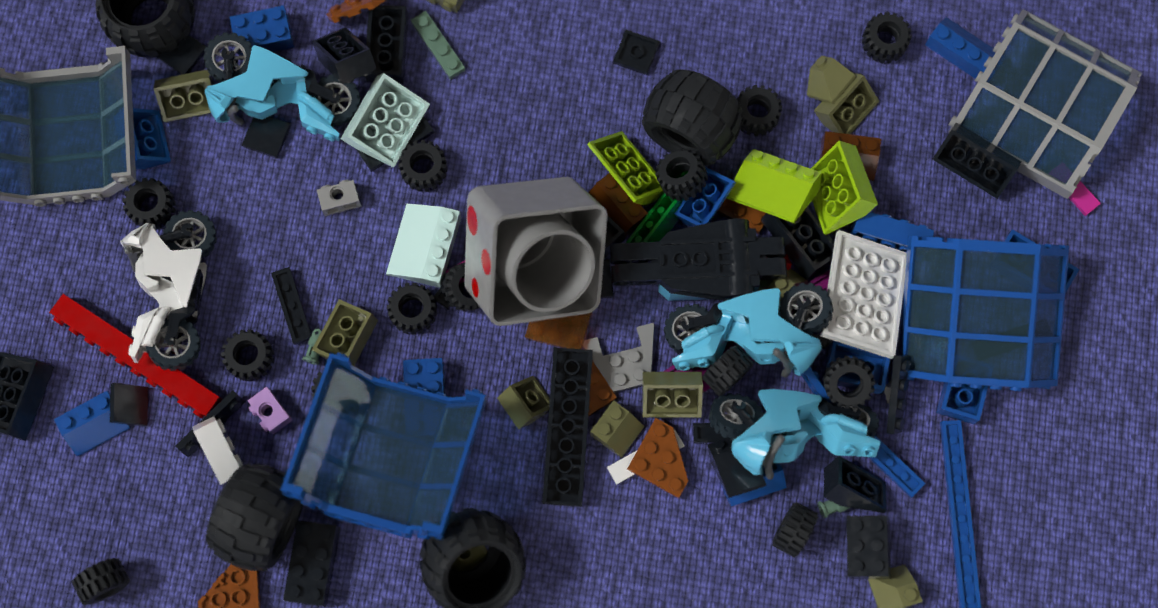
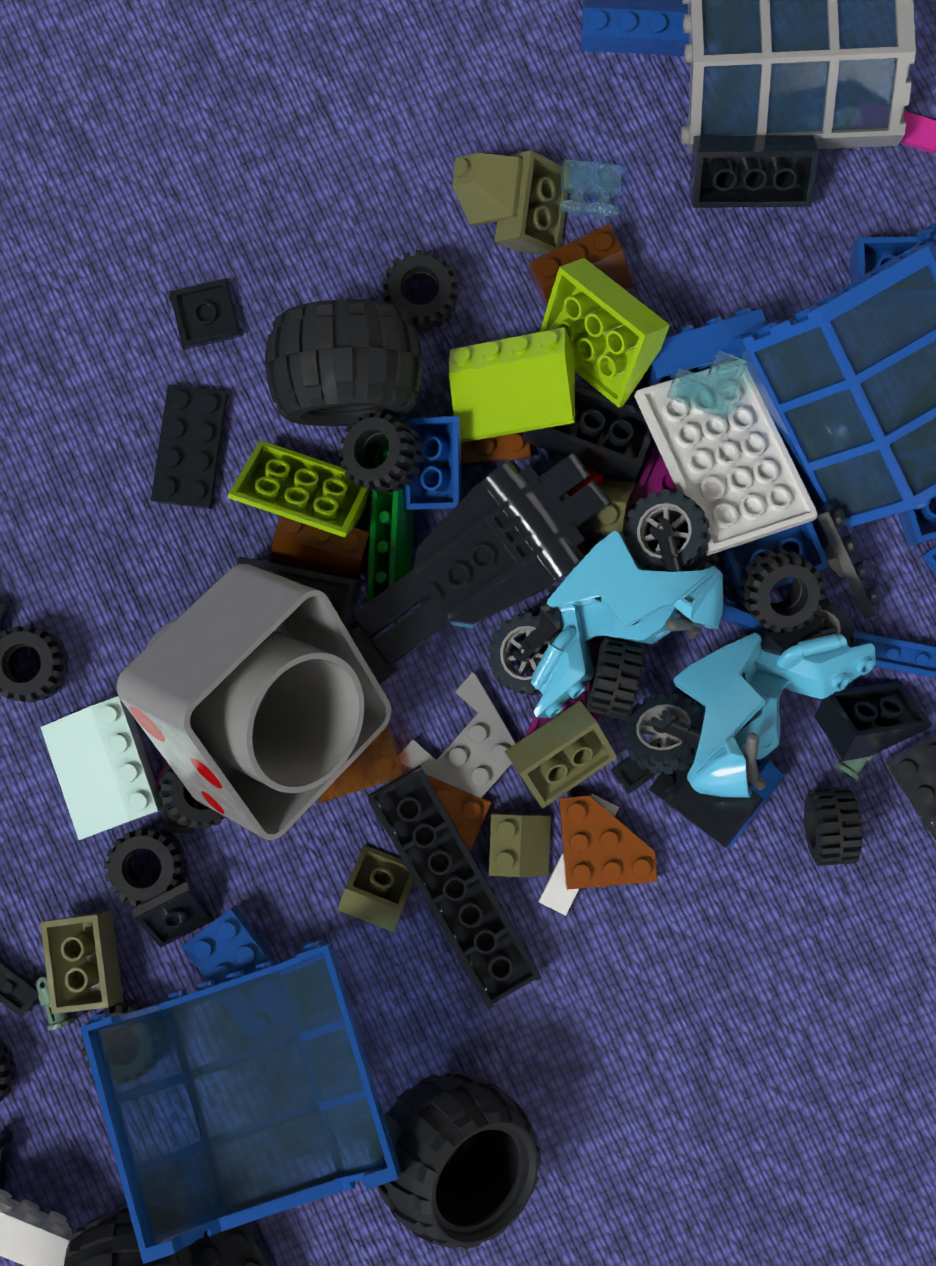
camera: 30 degrees left, 10 degrees up
(264, 400) = (70, 1123): lavender brick -> none
(409, 341) = (173, 914): none -> black tile
(582, 113) = (189, 447): none -> black plate
(879, 256) = (711, 393): none -> clear light blue plate
(887, 112) = (590, 179): none -> clear light blue plate
(889, 24) = (531, 52): black tyre -> none

